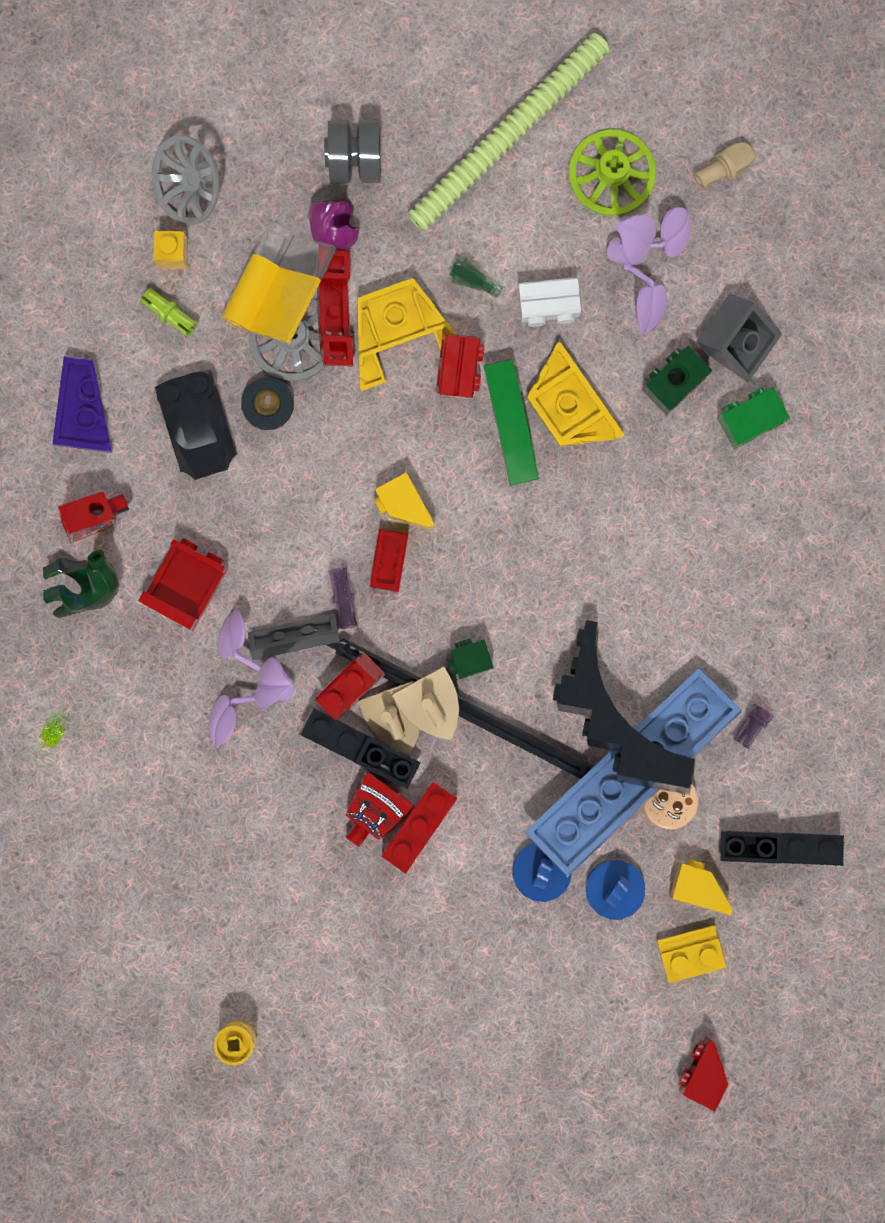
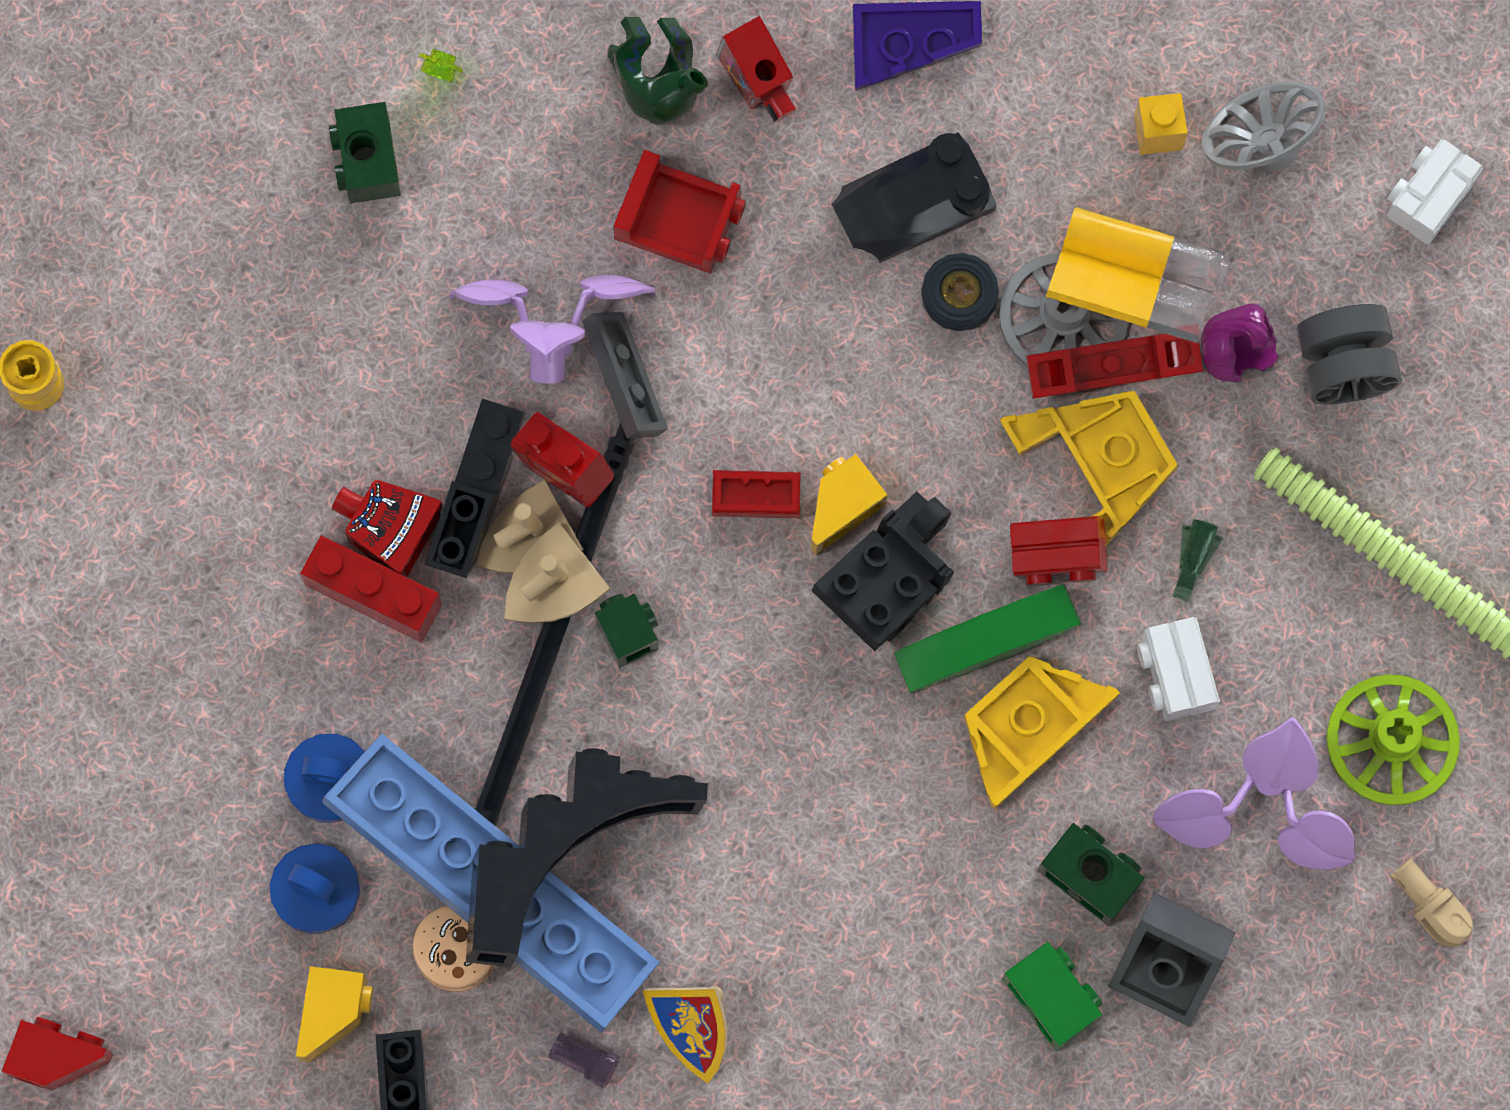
camera: 80 degrees right, 10 degrees down
(90, 788) = (369, 128): none -> dark green brick
(168, 312) = (1069, 136): lime pin -> none
(245, 77) = (1434, 190): none -> white brick
(343, 598) = (691, 437): clear purple pin -> none
(457, 480) = (889, 573): none -> black plate
(691, 953) = (232, 1014): yellow plate -> none
(742, 652) = (691, 1026): none -> shield

